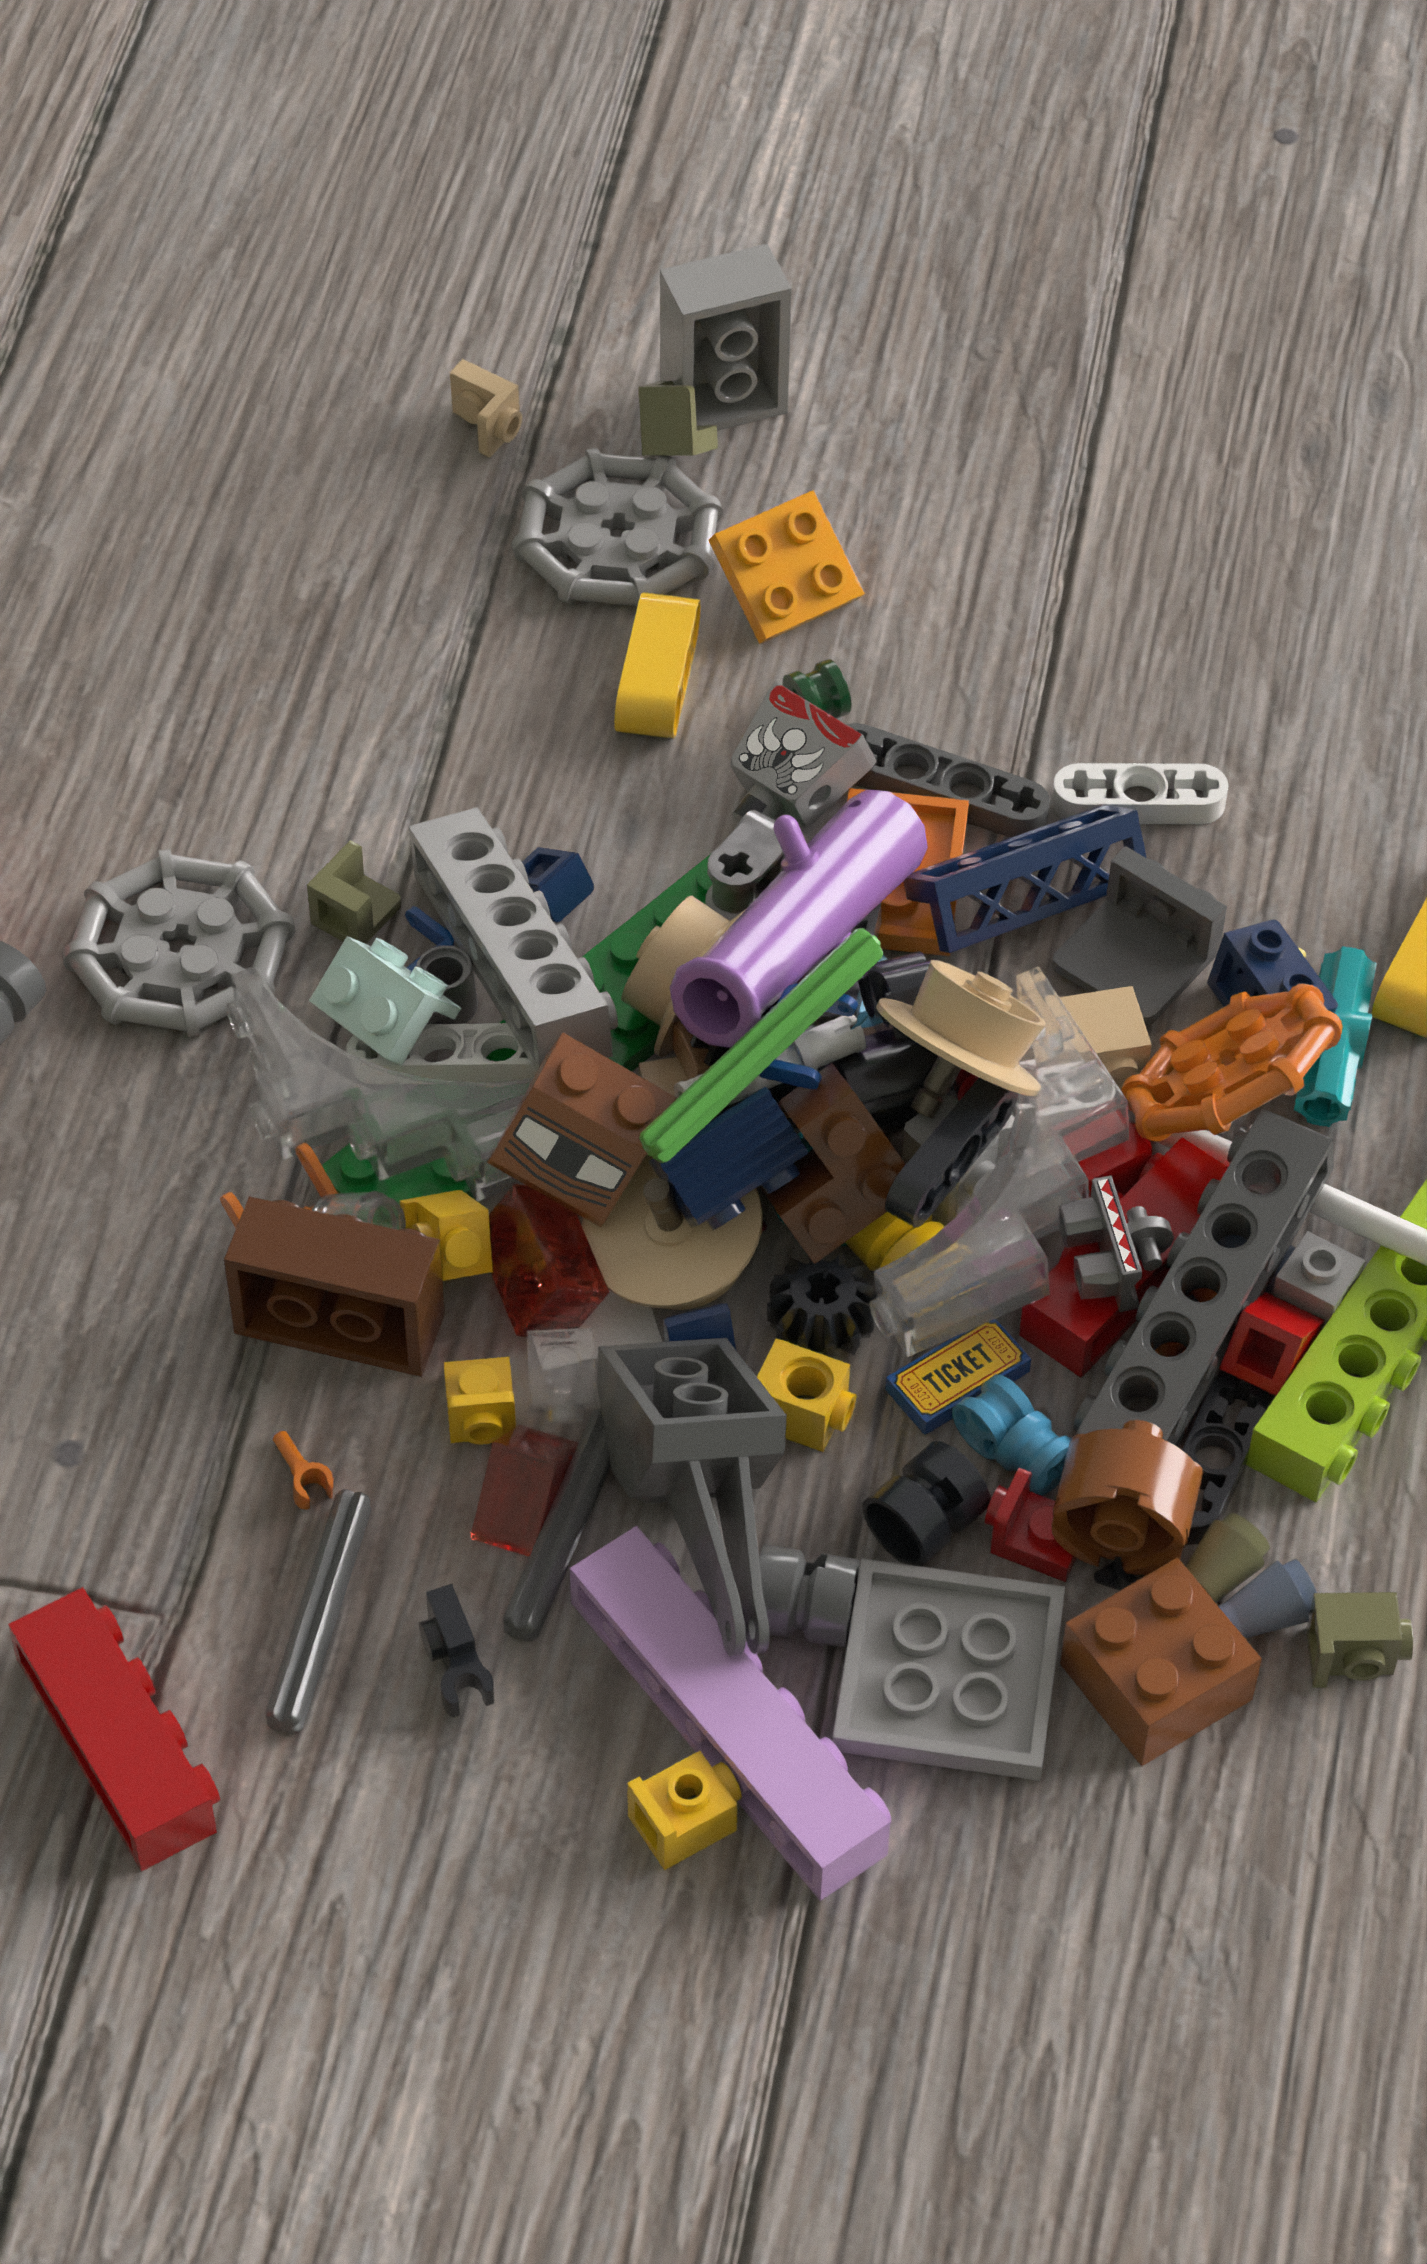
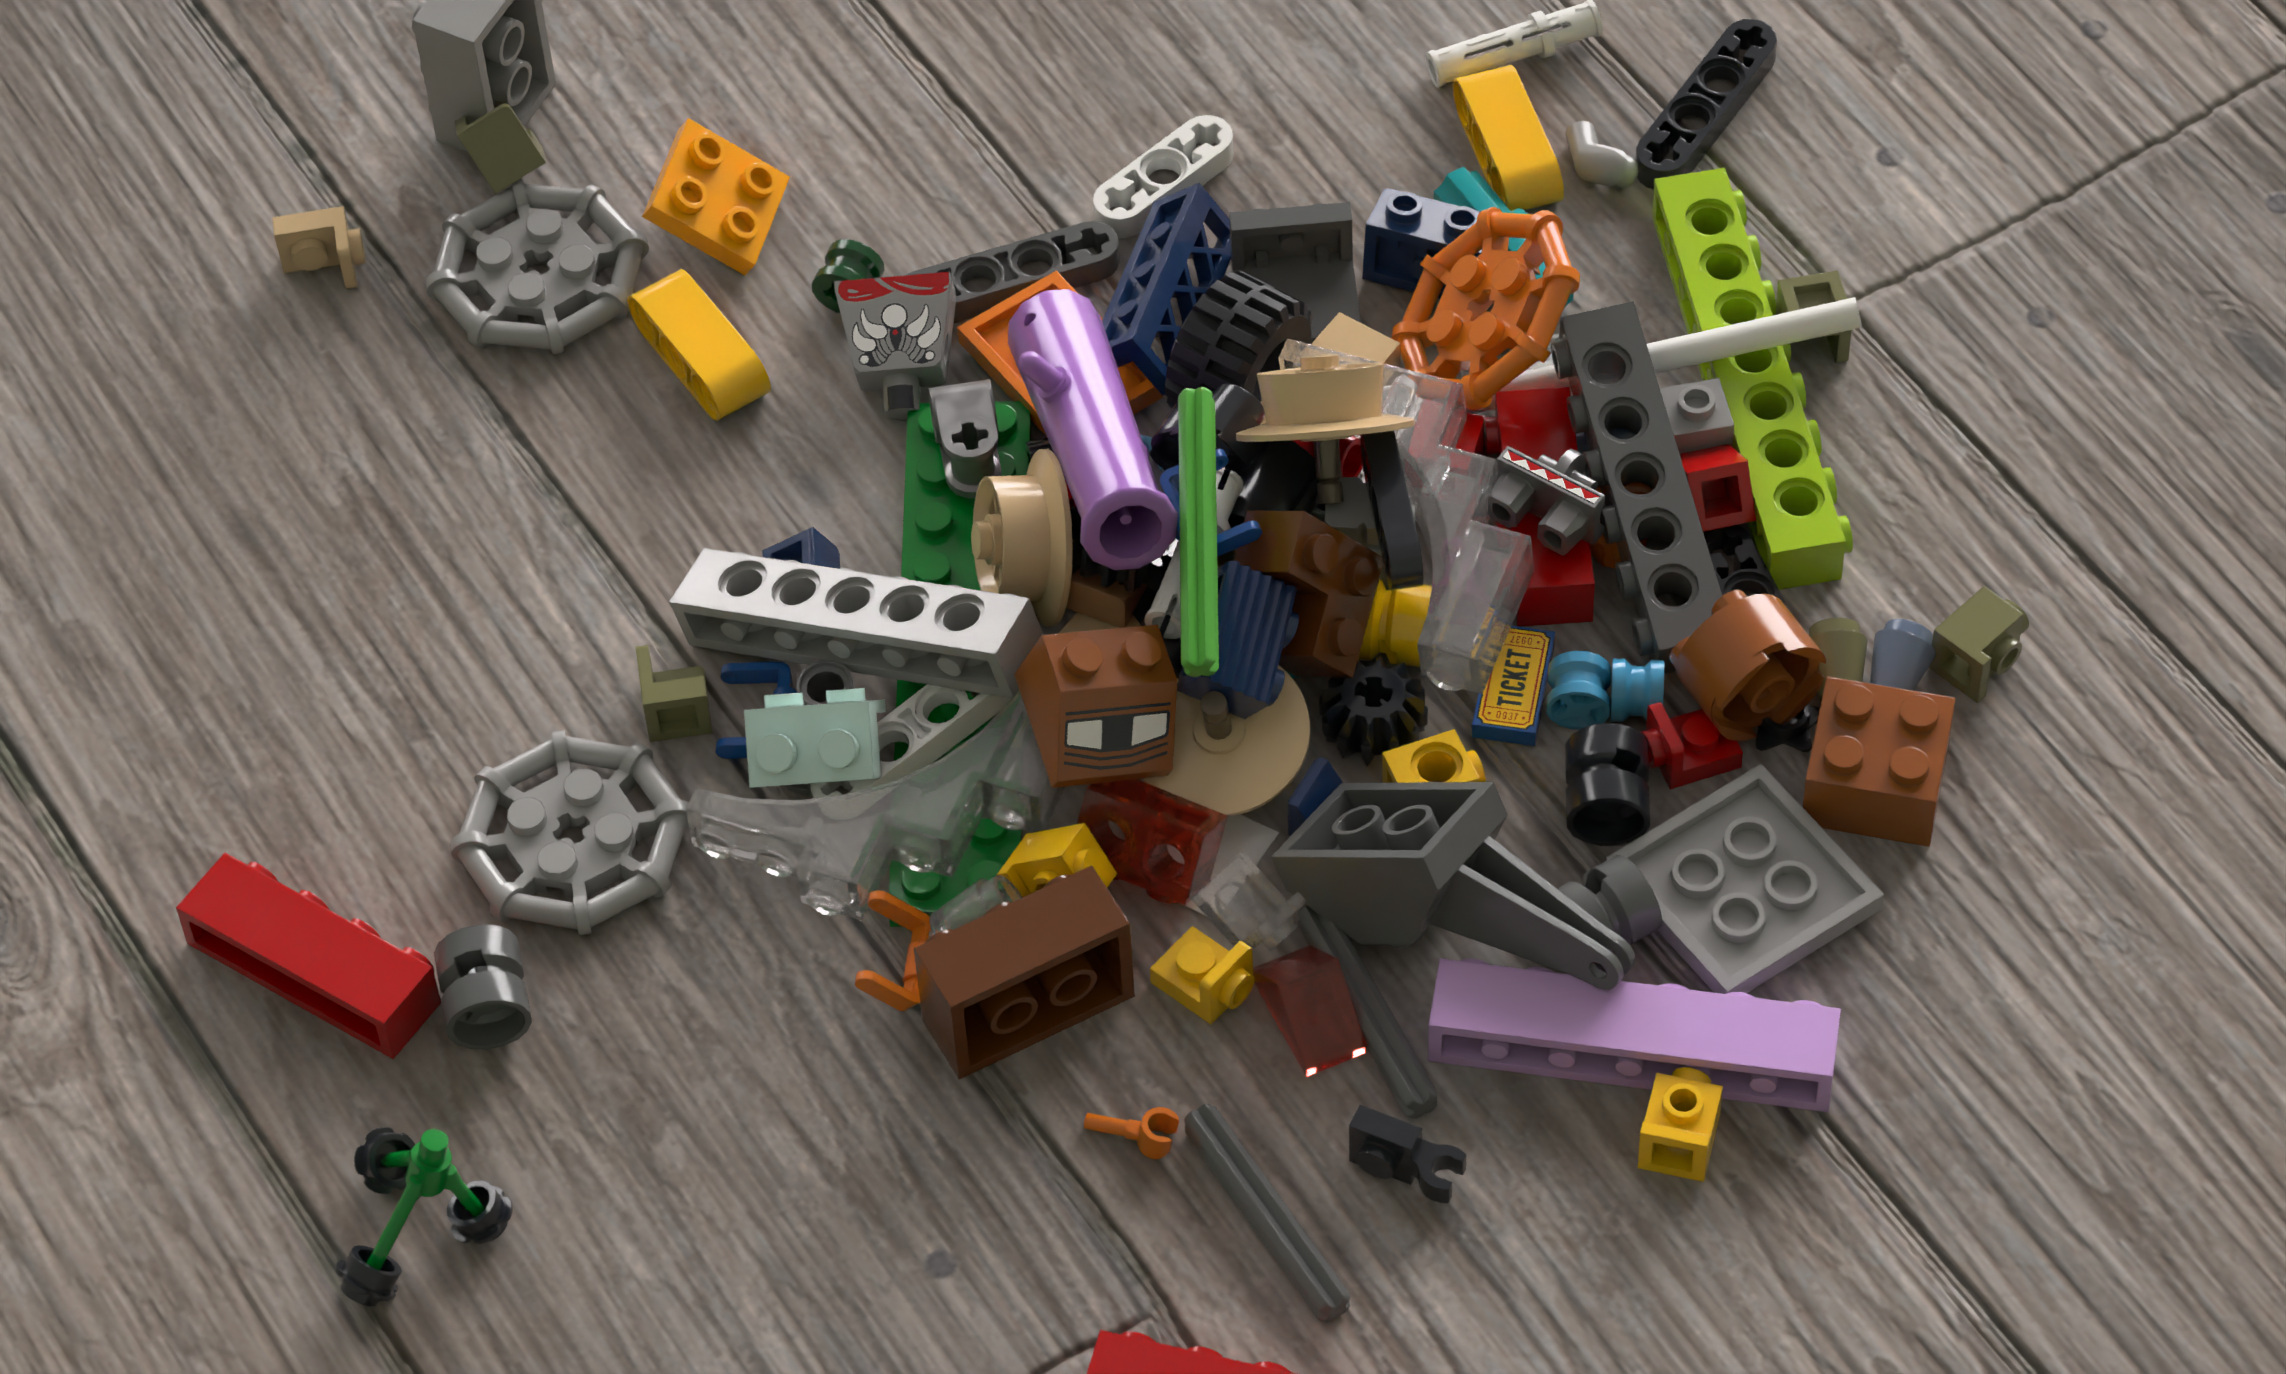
camera: 40 degrees left, 0 degrees up
(1013, 931) = (1234, 336): none -> black tyre

